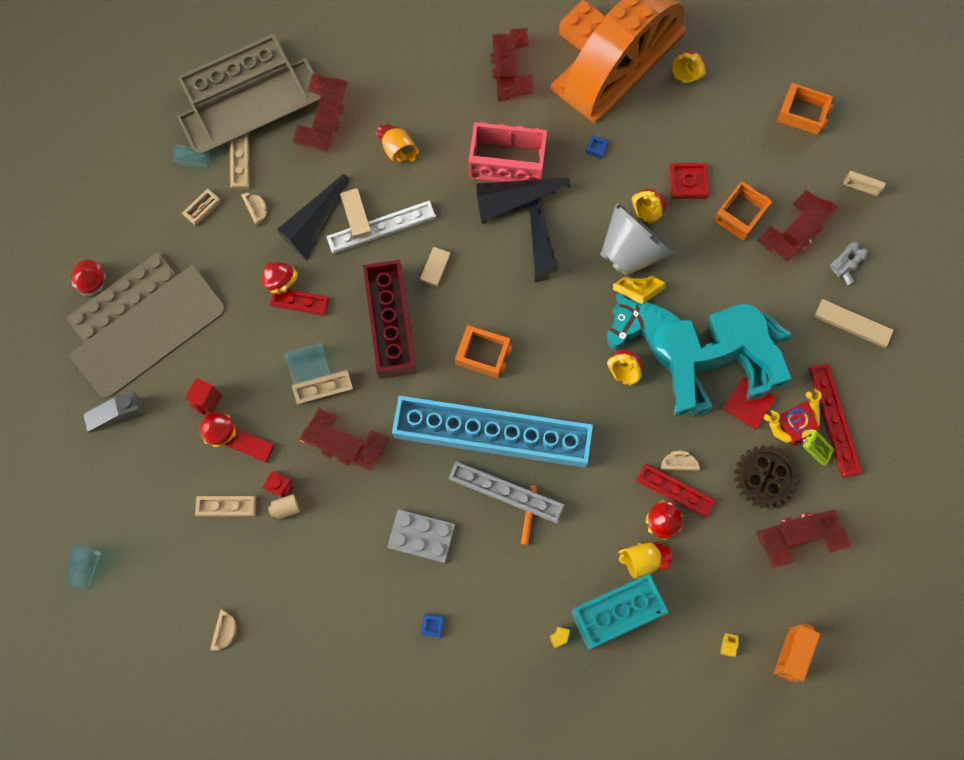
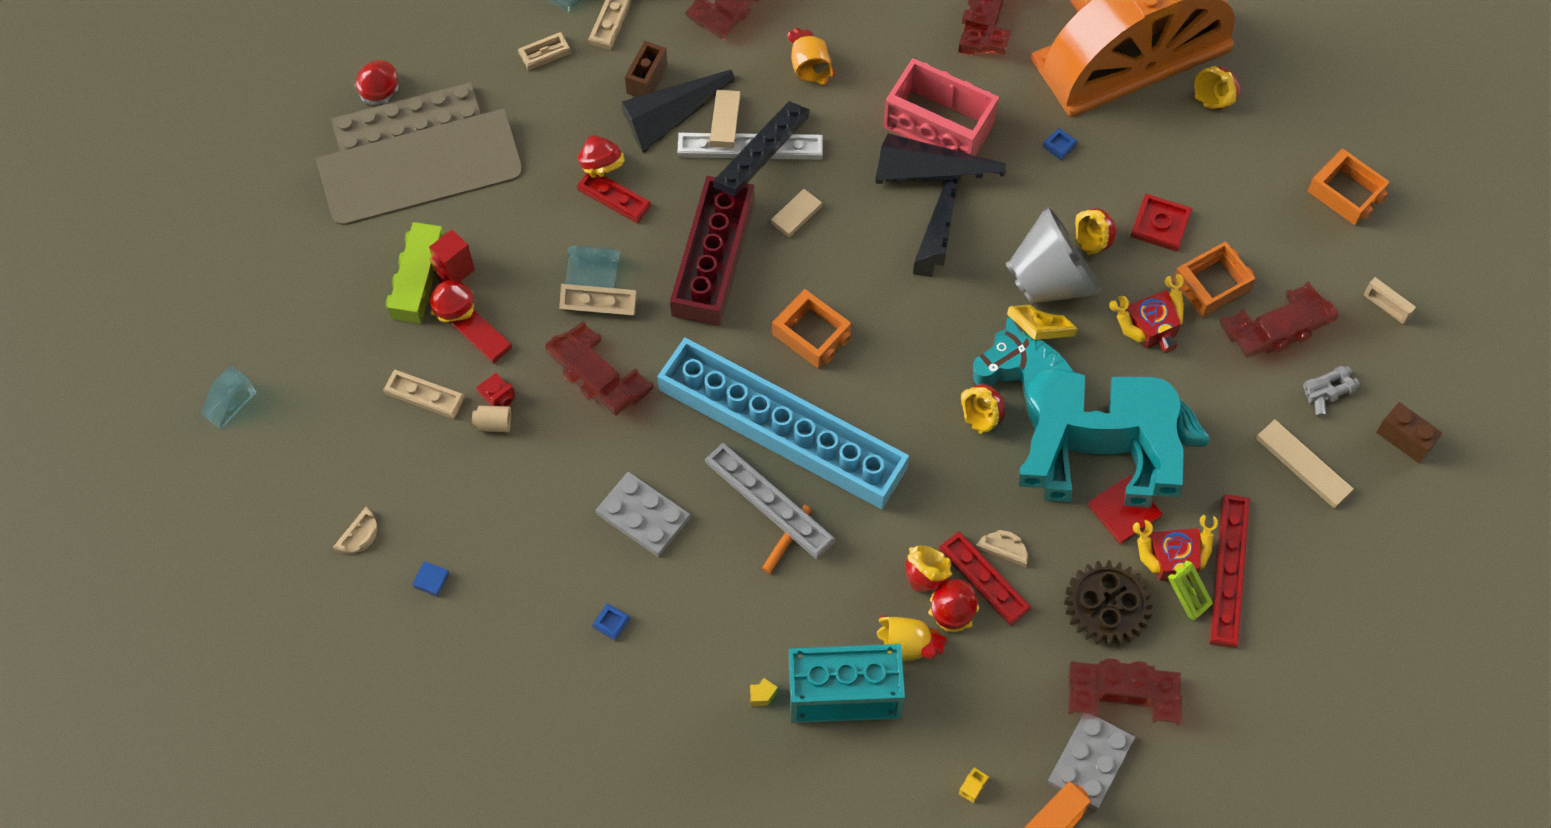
camera: 20 degrees right, 10 degrees down
(114, 411) = (343, 239): dark grey slope -> none
(181, 417) = (415, 274): none -> lime brick
(256, 207) = (609, 73): tan tile -> none
(283, 197) = (646, 69): none -> reddish brown brick
(290, 645) = (430, 578): none -> blue tile
(392, 229) = (761, 148): none -> black plate
(636, 501) = (927, 568): none -> yellow hair
(714, 254) = (1153, 318): none -> torso
(799, 594) = (1092, 758): none -> light grey plate
(914, 275) = (1409, 432): none -> reddish brown brick

